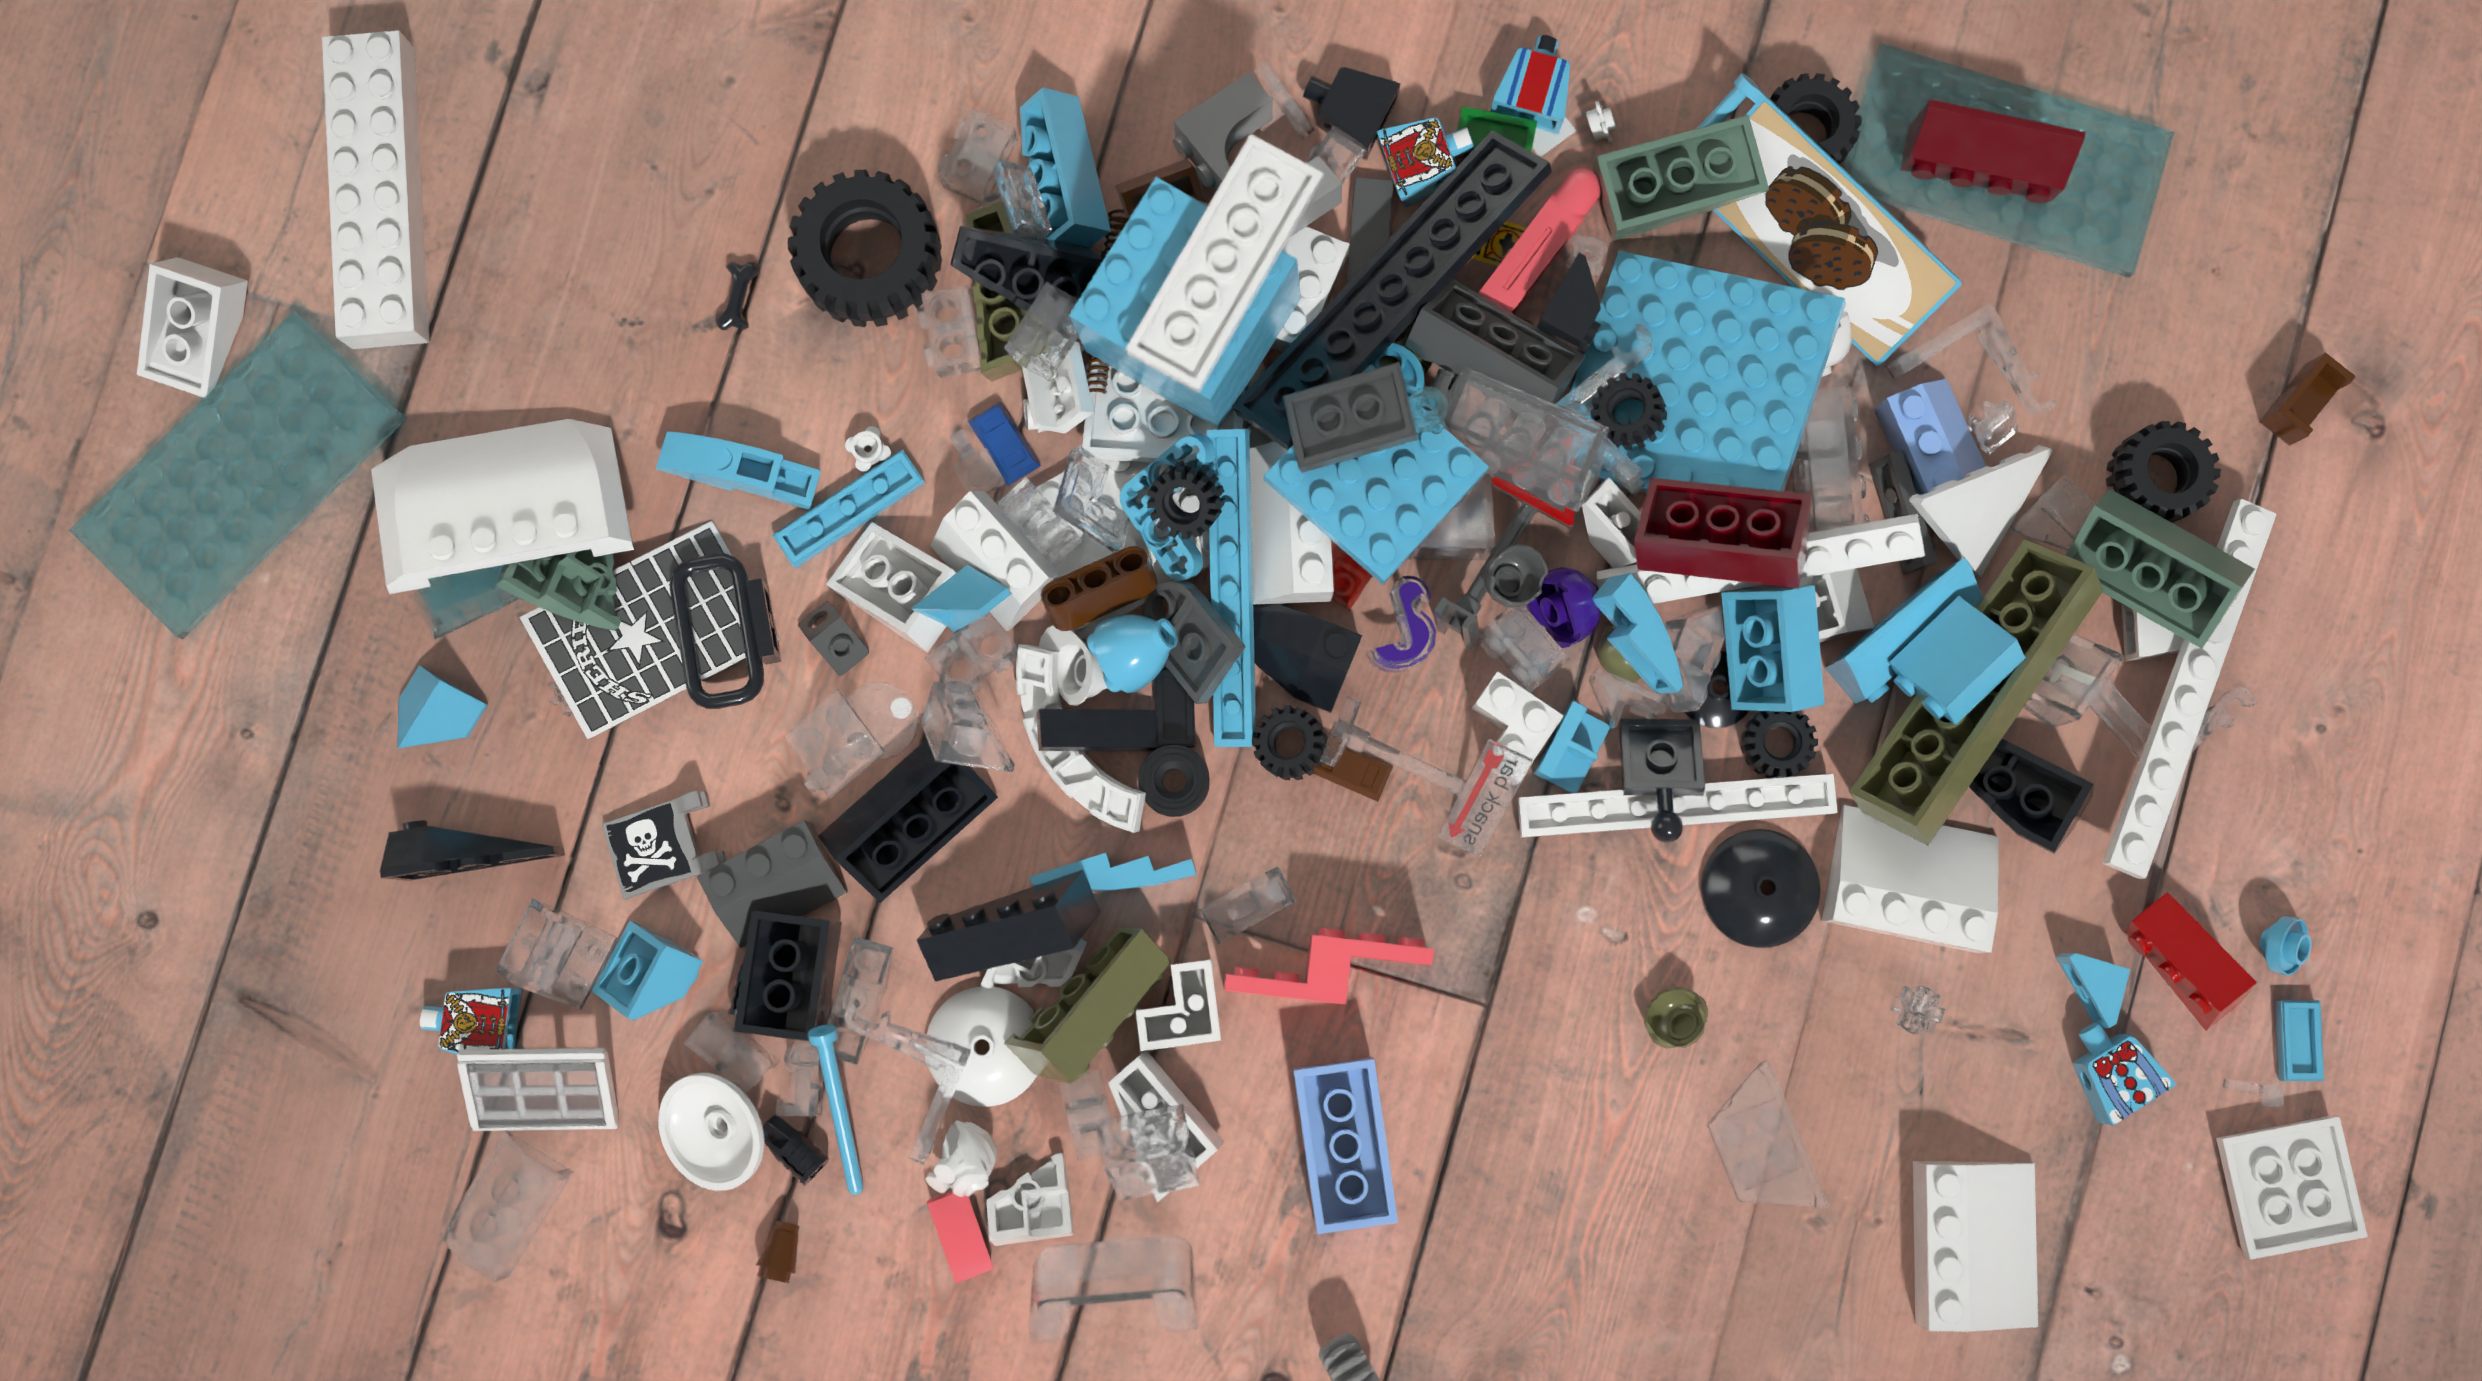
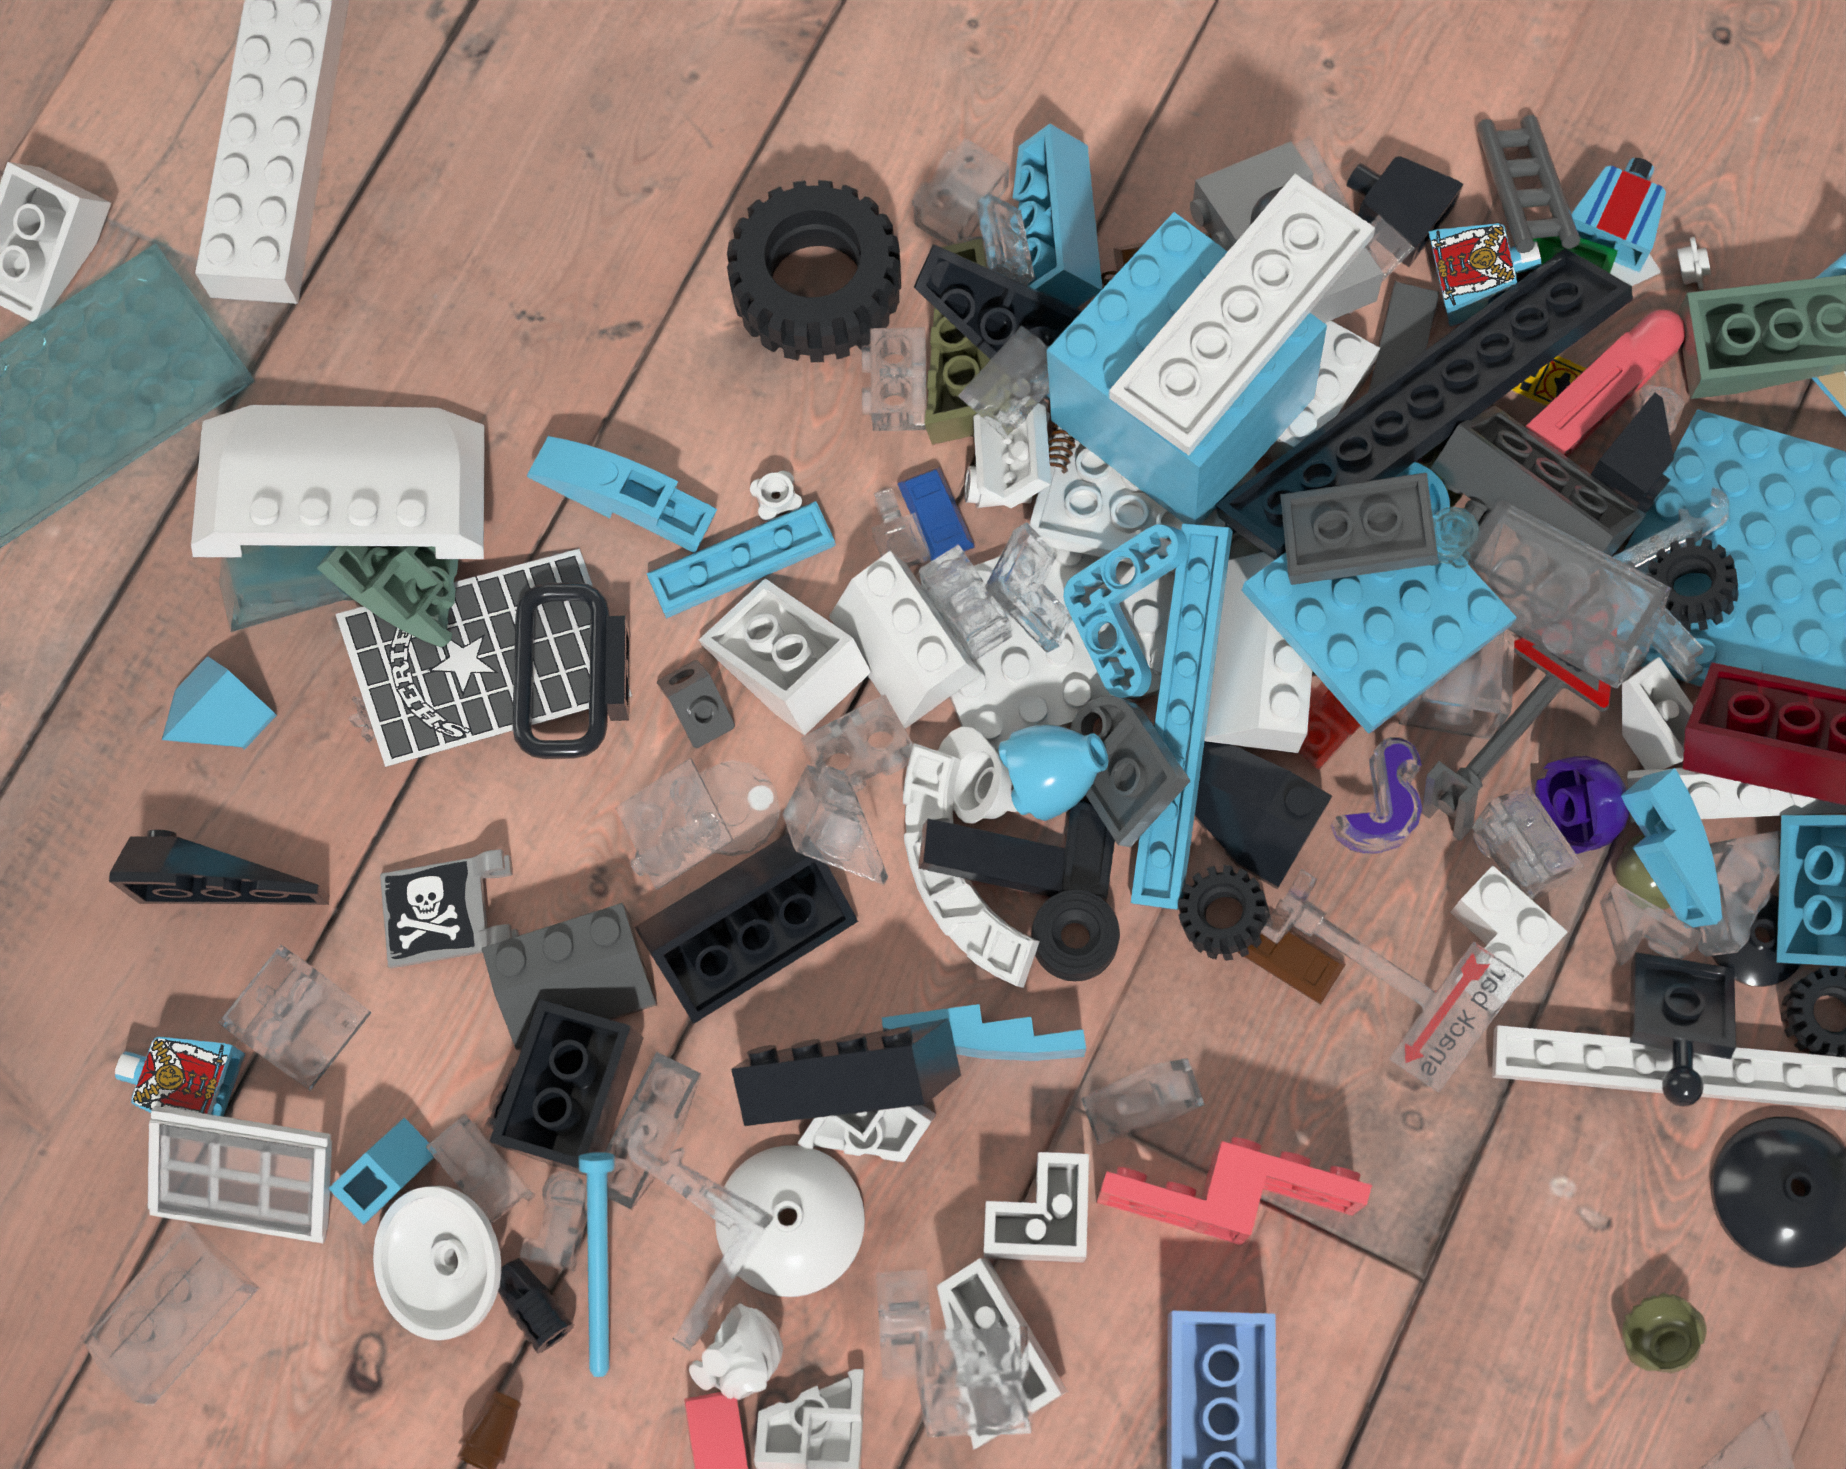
camera: 15 degrees right, 10 degrees down
(645, 973) = (397, 1057): medium azure slope -> none
(653, 1067) = (382, 1171): none -> medium azure slope
(733, 314) = (648, 324): black piece -> none
(962, 599) = (857, 676): medium azure slope -> none
(1091, 1007) = (930, 1190): olive wedge -> none
(1099, 588) = (1023, 690): reddish brown beam -> none
(1200, 485) = (1118, 604): black tyre -> none
(1443, 91) = (1515, 200): none -> dark grey bar
(1515, 575) = (1531, 752): dark grey hair -> none
(1572, 748) = (1570, 979): medium azure panel -> none

